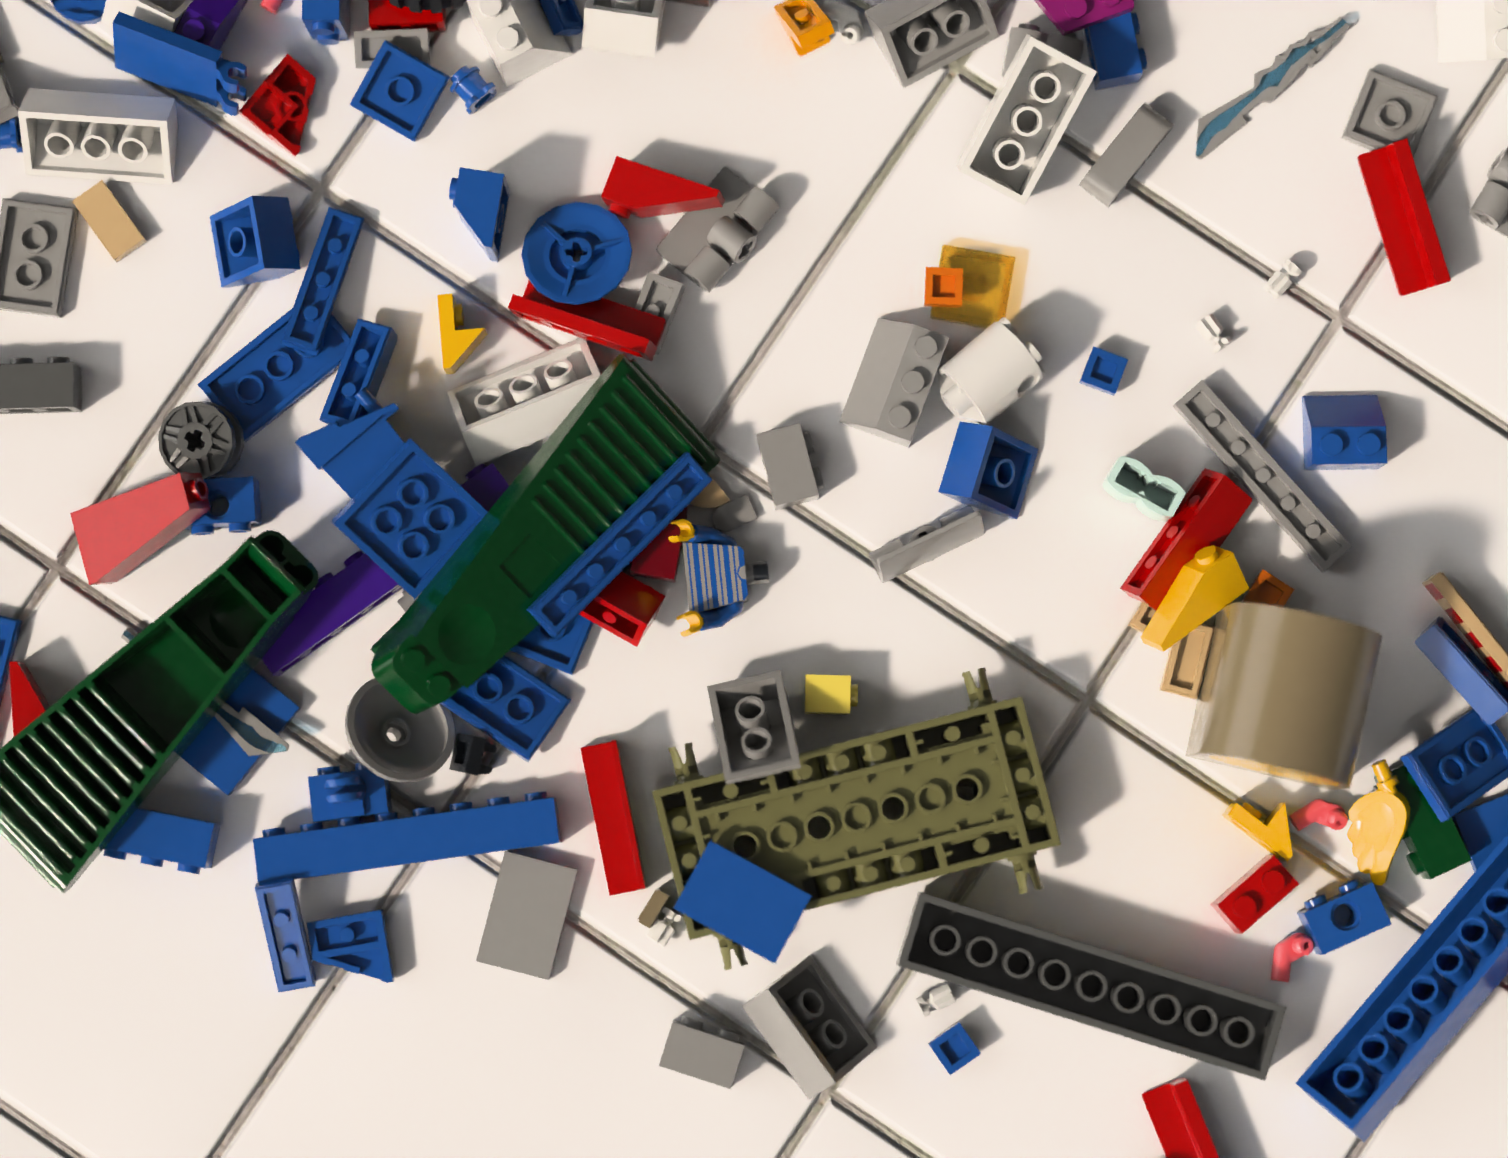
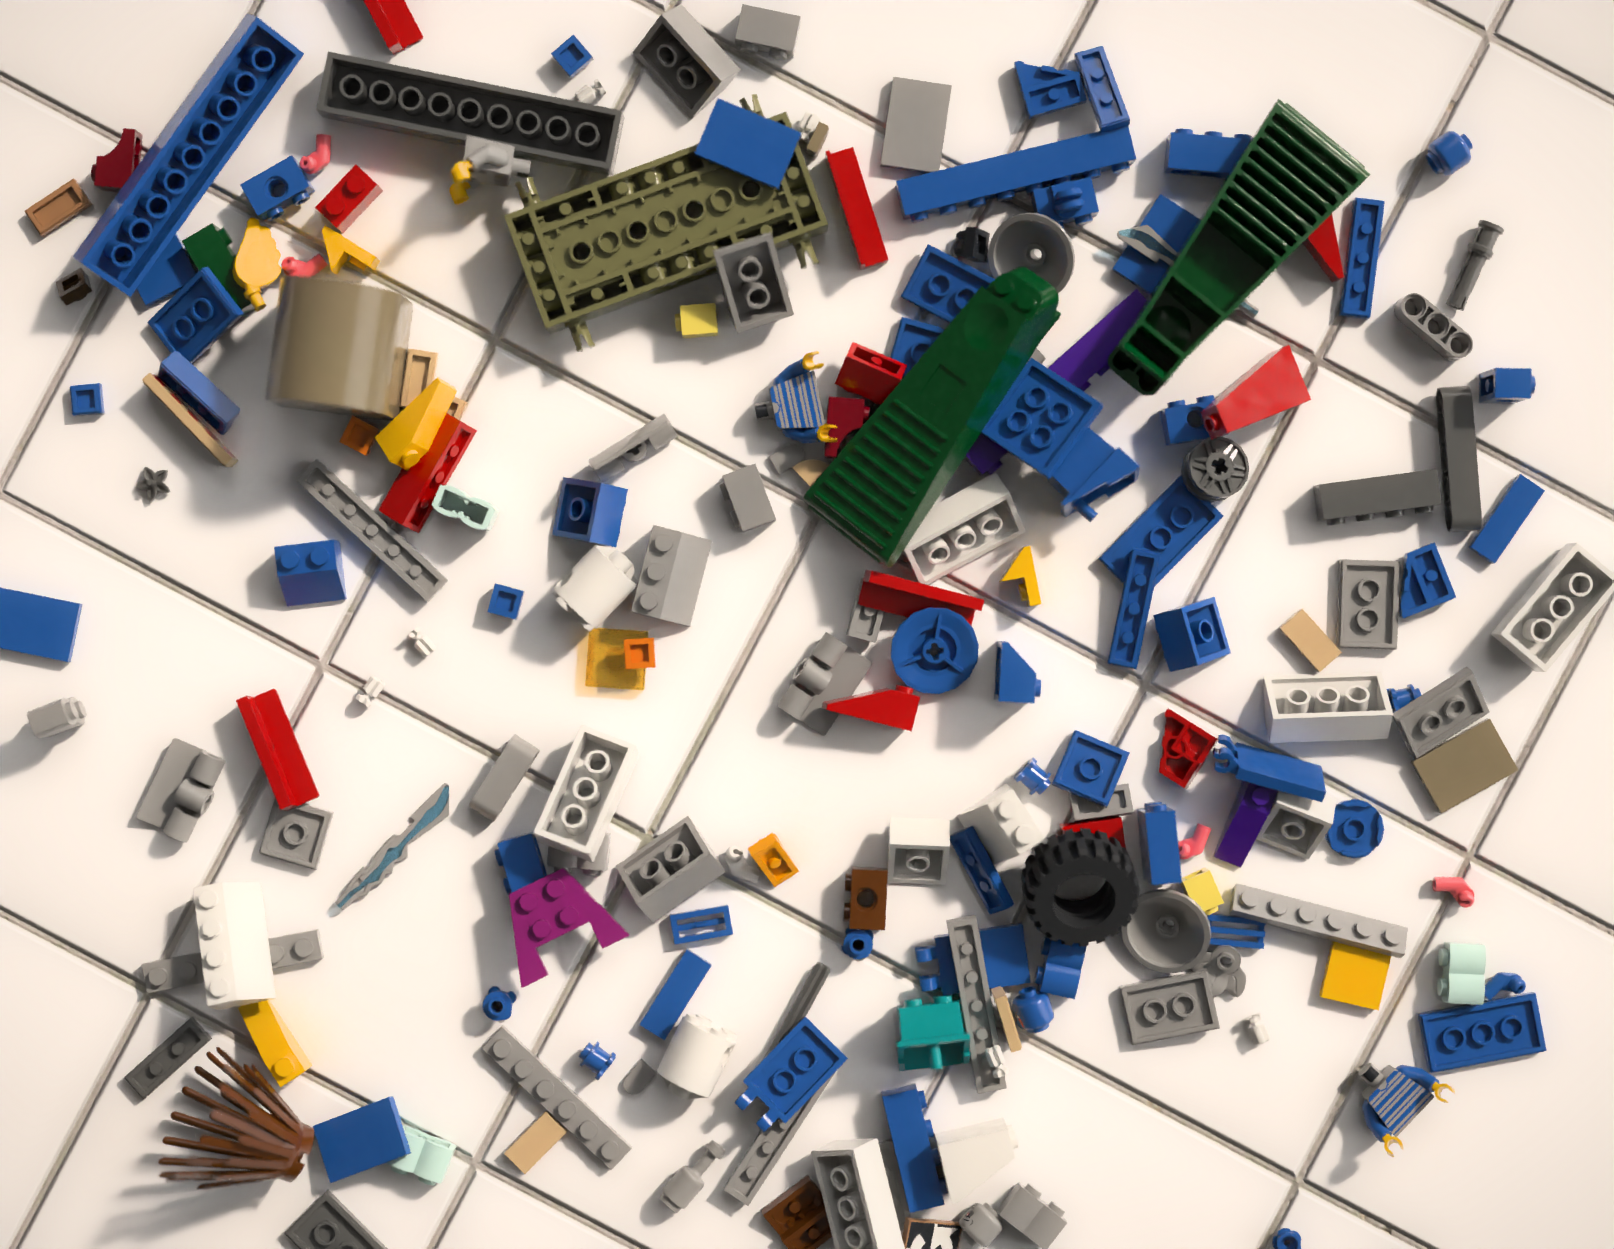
camera: 175 degrees right, 5 degrees up
(361, 367) = (1096, 536): blue slope -> none
(619, 544) = (874, 416): blue tile -> none
(1074, 915) = (485, 164): none -> light grey torso

